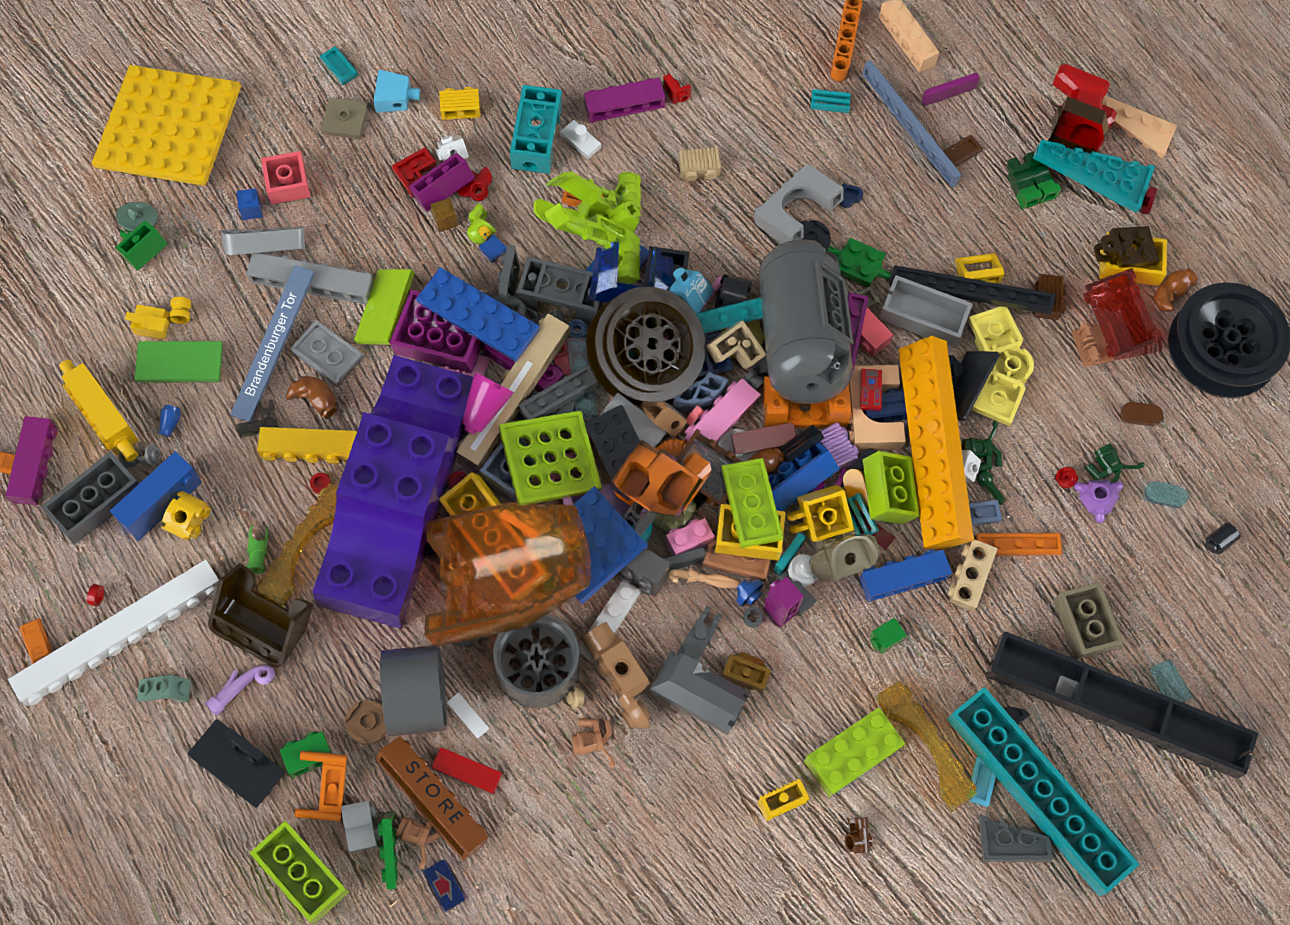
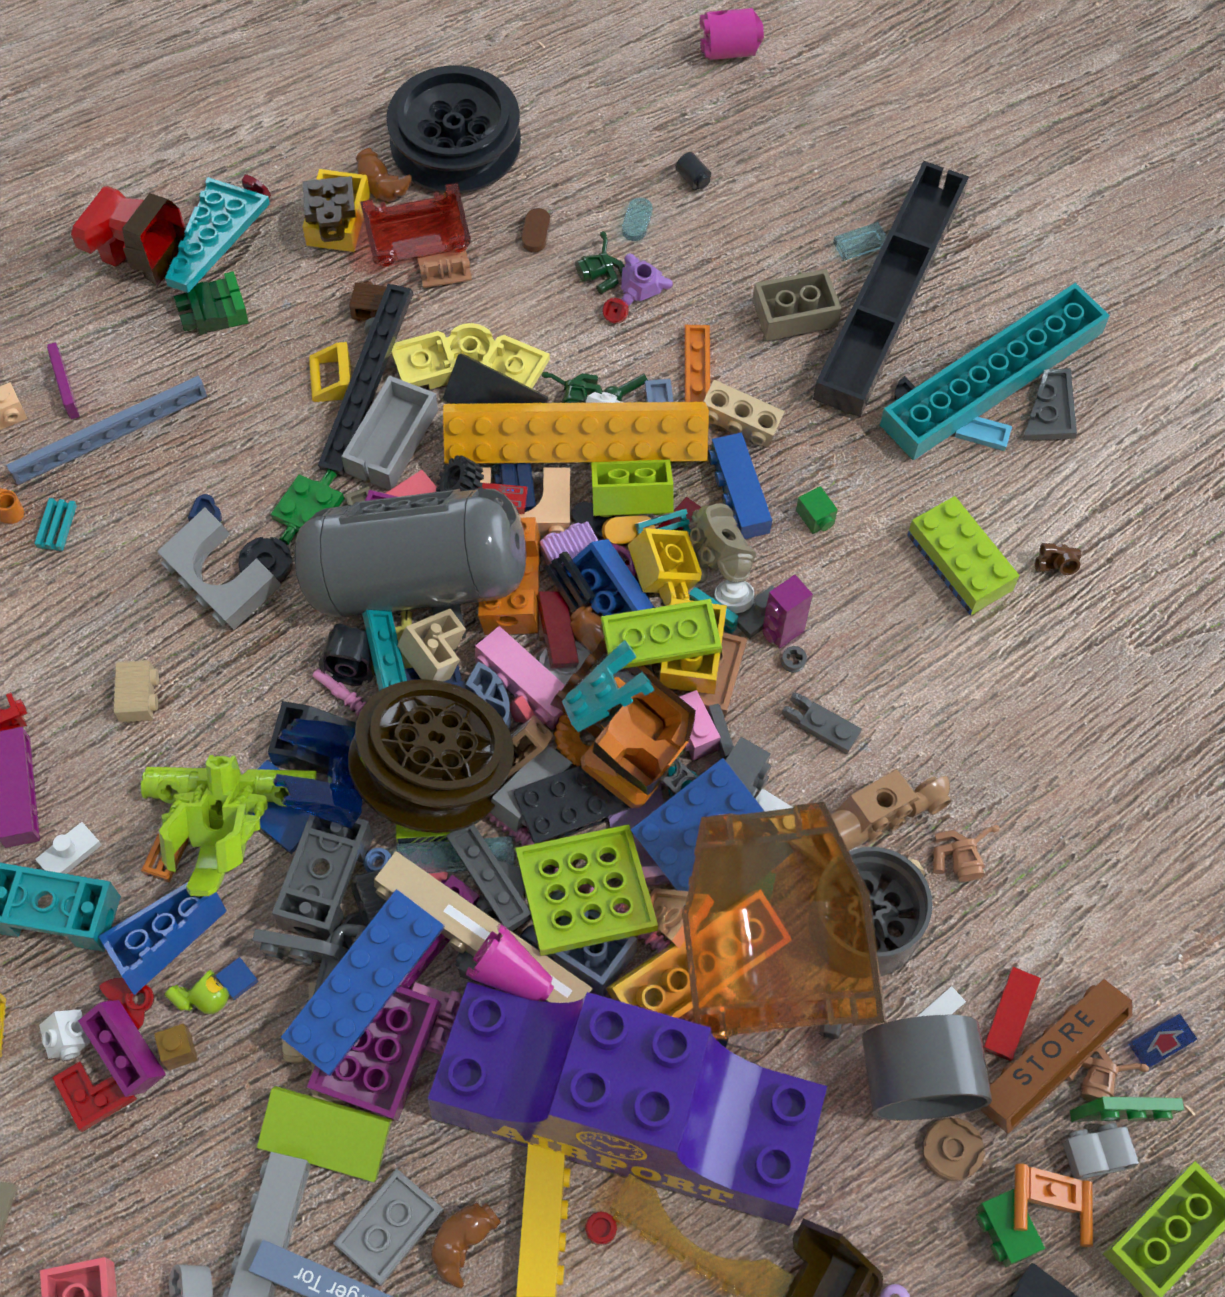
camera: 85 degrees left, 5 degrees down
(516, 193) = (159, 934): none -> blue wedge
(688, 448) = (600, 692): none -> teal wing
(691, 288) = (339, 702): medium azure torso -> none
(699, 692) = (902, 716): dark grey brick -> none
(712, 579) = (746, 699): light nougat piece -> none
(747, 671) = (865, 666): pearl gold slope -> none
(749, 592) = (766, 657): blue plate -> none
(753, 378) = (472, 636): dark grey wheel -> none
(783, 799) = (1027, 633): yellow brick -> none
(880, 358) = (461, 475): none -> black tyre
(900, 707) = (995, 455): clear yellow arch -> none
(963, 150) = (154, 375): reddish brown tile -> none
(1065, 686) = (874, 337): light grey plate -> none
(1146, 128) = (156, 176): light nougat wing -> none

